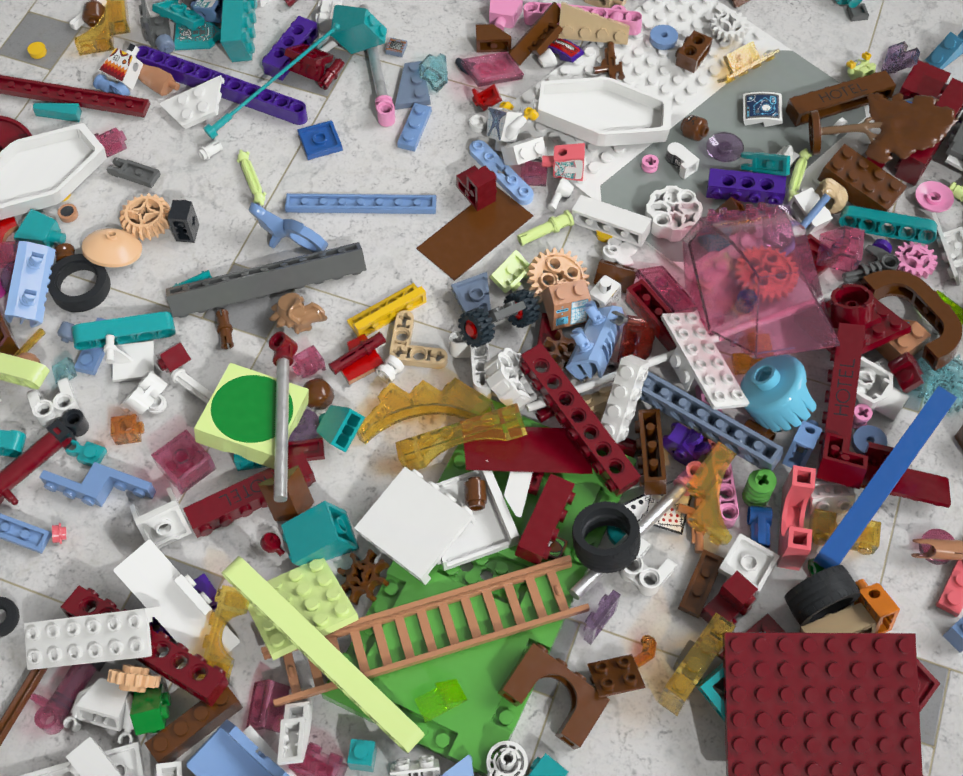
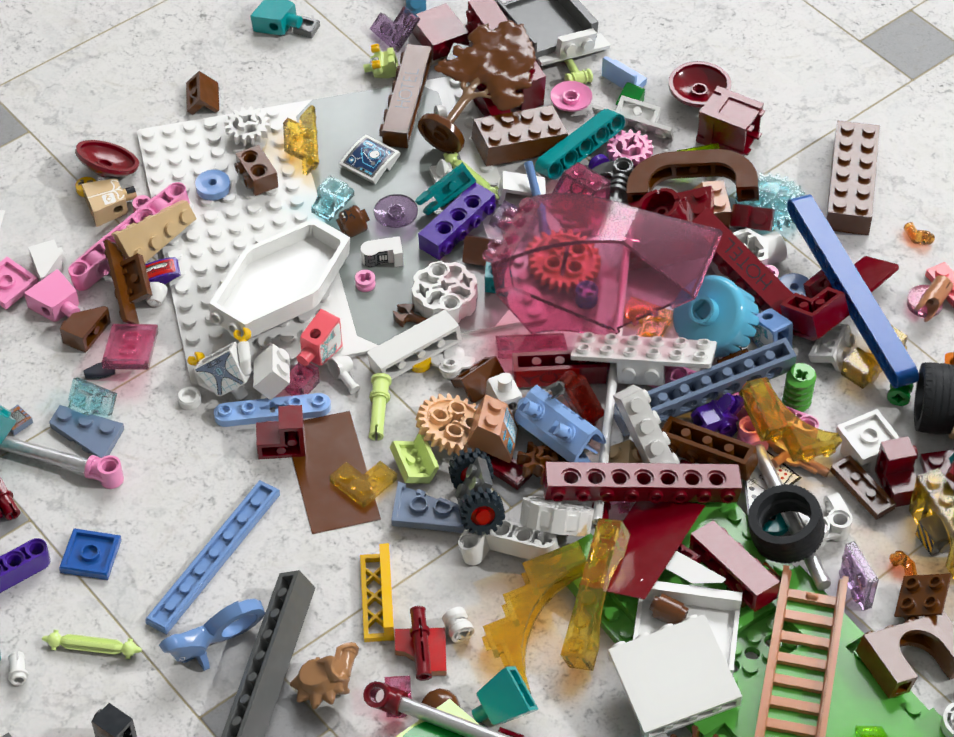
camera: 60 degrees left, 10 degrees down
(405, 347) = (437, 600): tan beam -> none
(414, 127) = (147, 457): medium blue plate -> none
(473, 257) = (363, 487): none -> clear yellow plate
(487, 97) = (164, 370): red bracket -> none
(609, 64) = (211, 246): reddish brown piece -> none
(638, 205) = (409, 315): none -> reddish brown bar
(706, 104) = (331, 198): none -> clear light blue brick
(760, 522) = (826, 409): blue piece -> none
(795, 540) = (878, 384): coral arch -> none
(837, 193) = (514, 161): tan hair -> none

